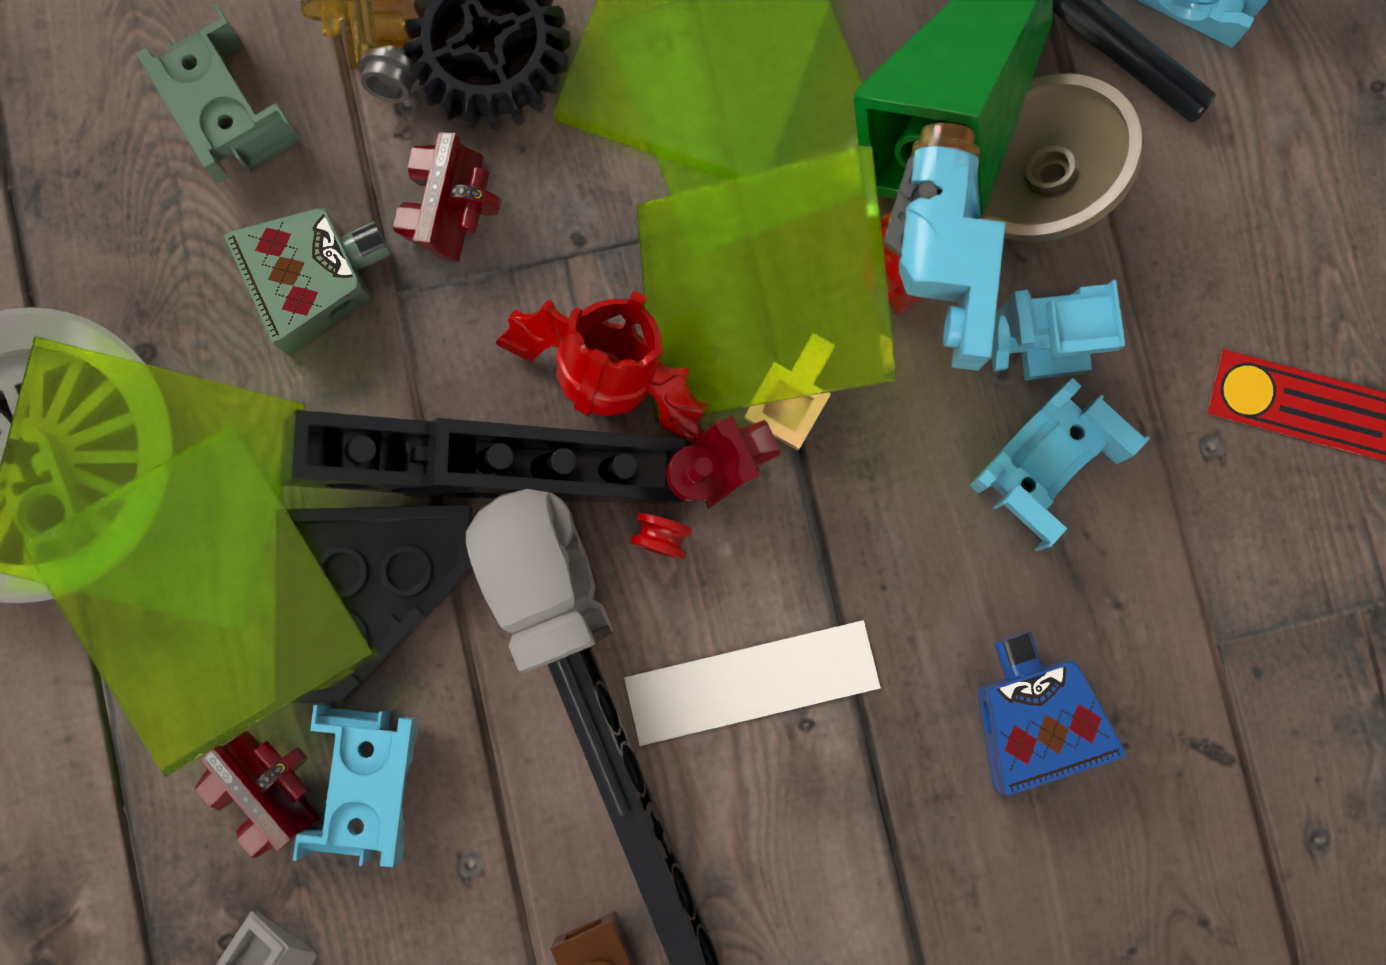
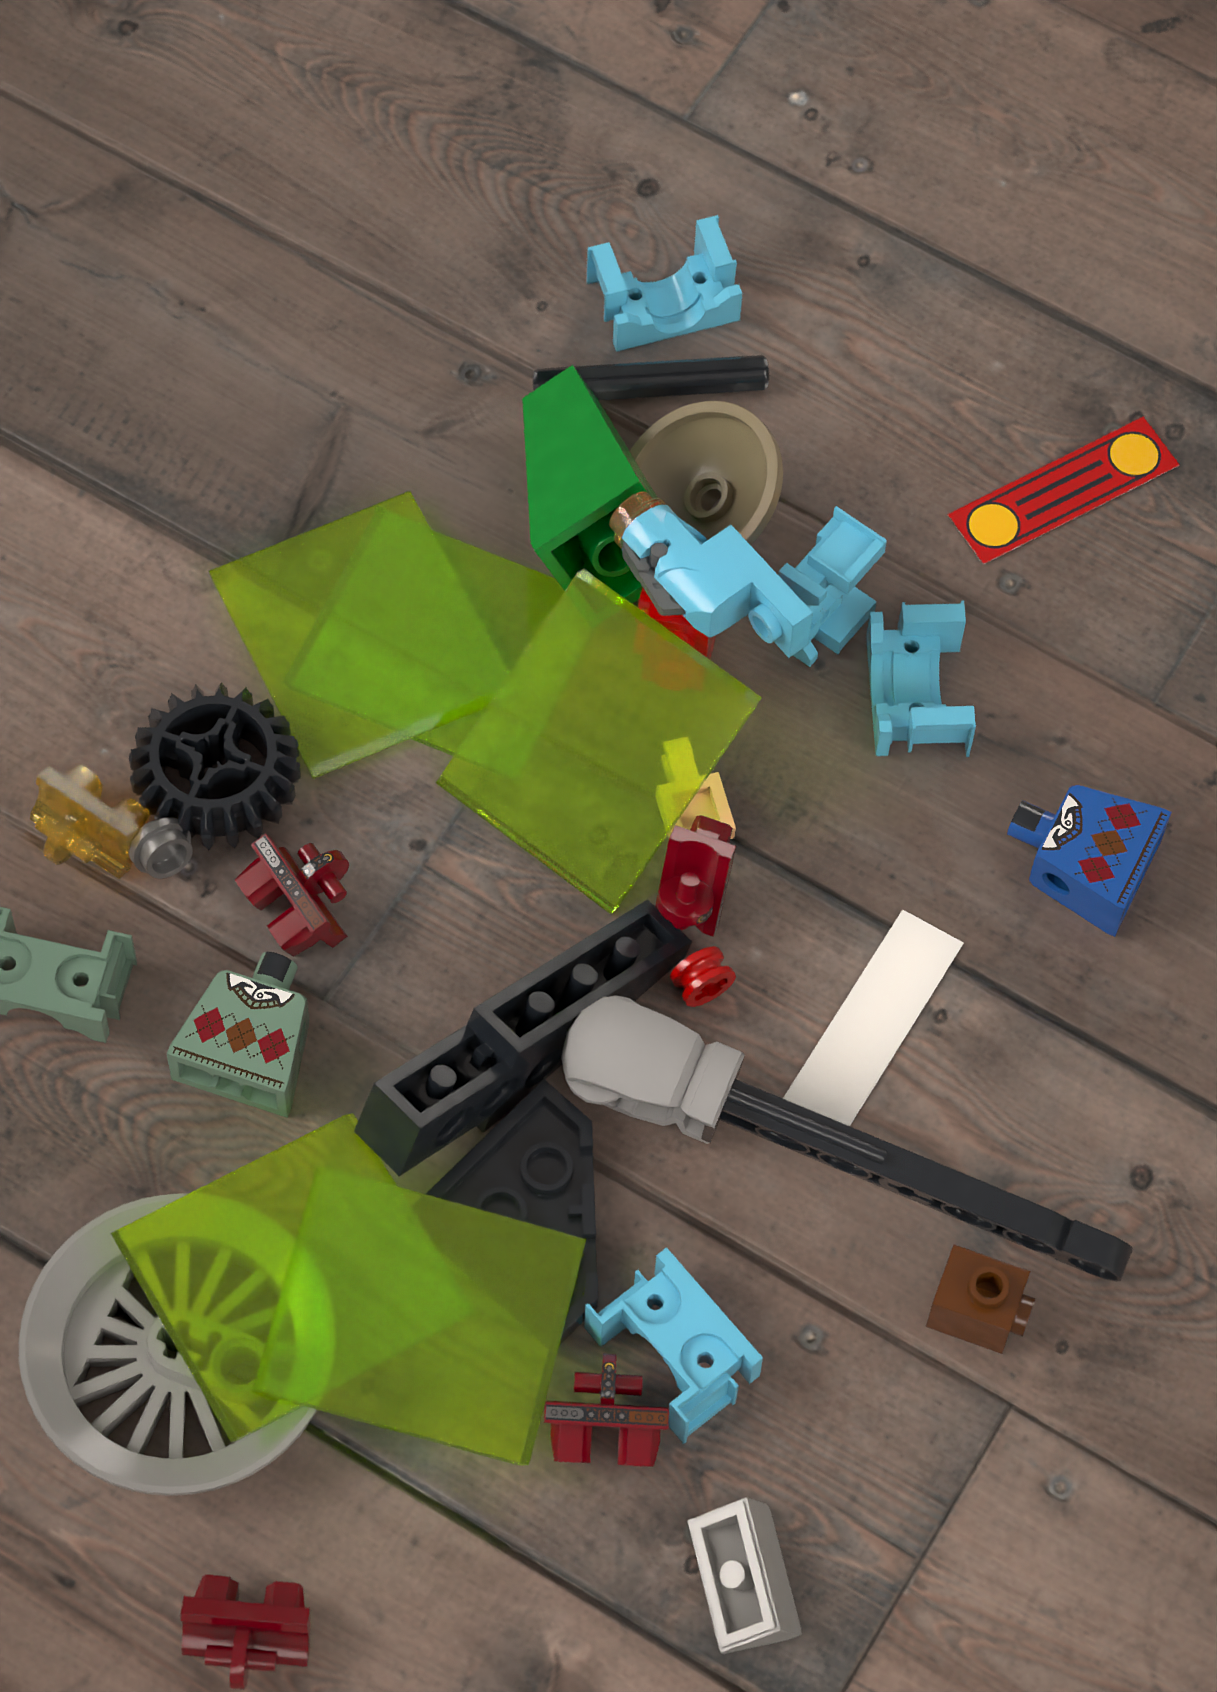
camera: 45 degrees left, 20 degrees down
(608, 364) = (542, 895): red helmet -> none

